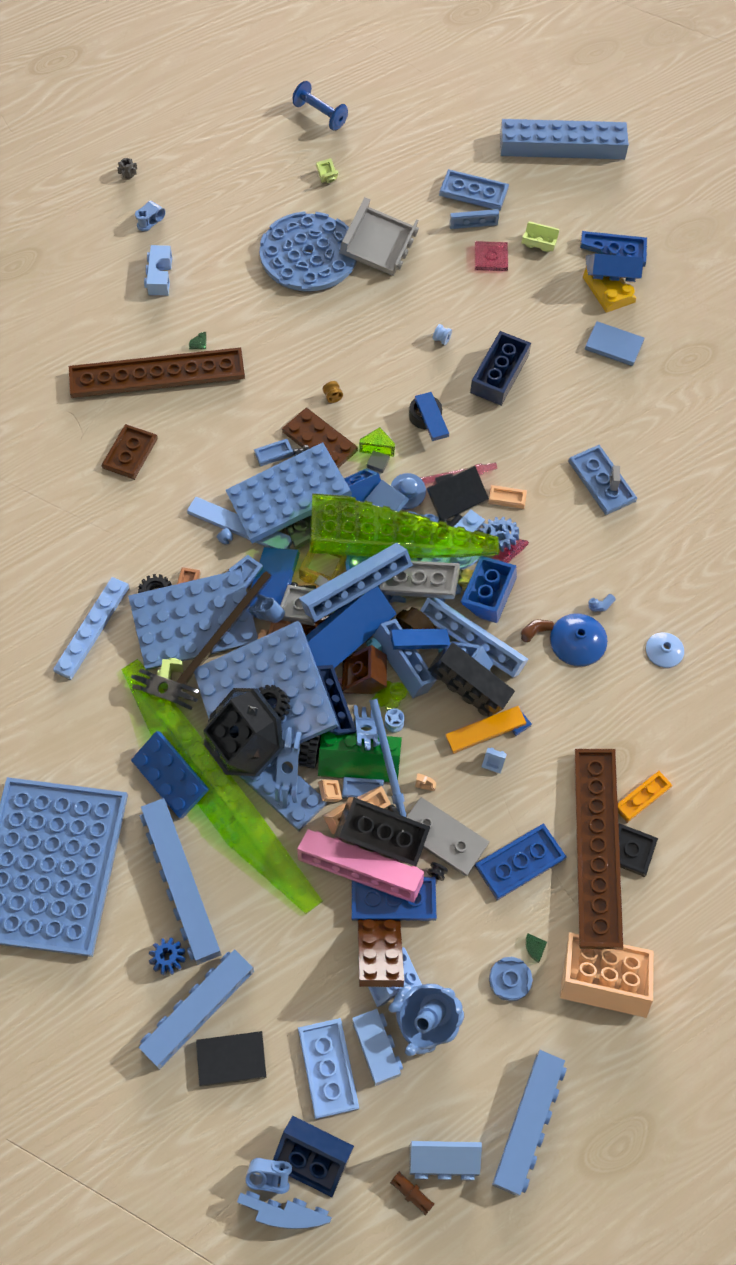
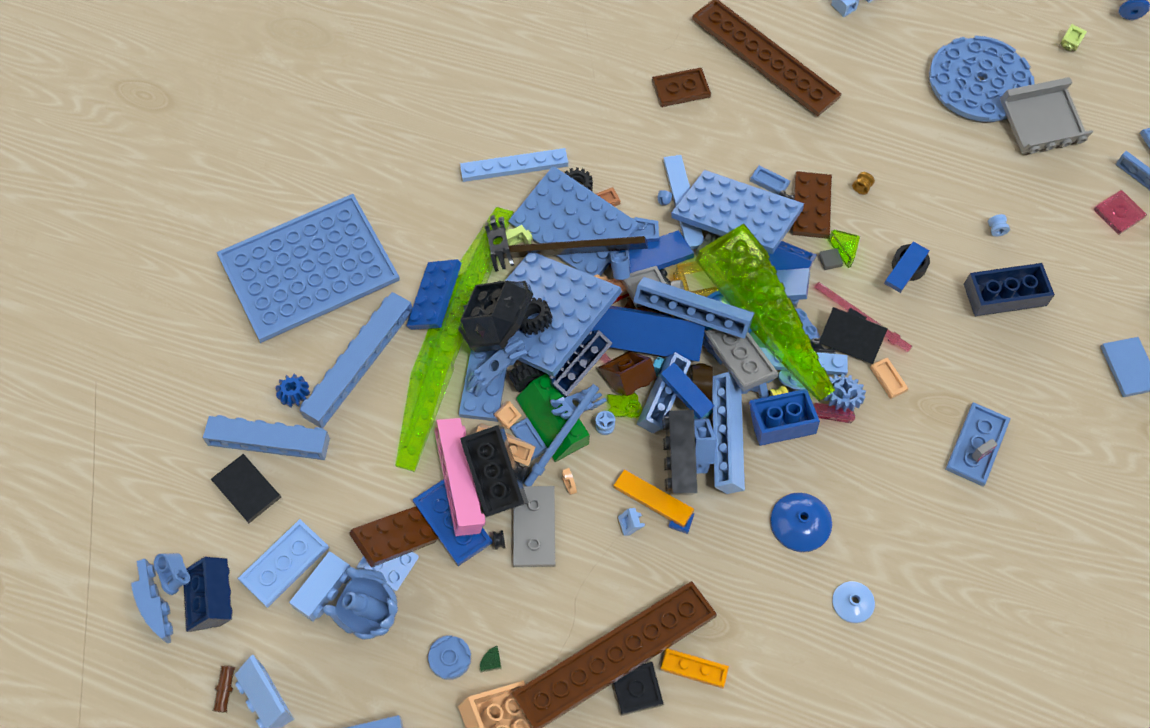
camera: 55 degrees right, 0 degrees up
(199, 341) = (821, 65): clear green tile -> none
(411, 487) = (822, 297): medium blue plate -> none
(520, 861) = (557, 601): blue tile -> none
(535, 627) = (780, 477): reddish brown arm -> none
(596, 605) = (849, 520): medium blue arm -> none

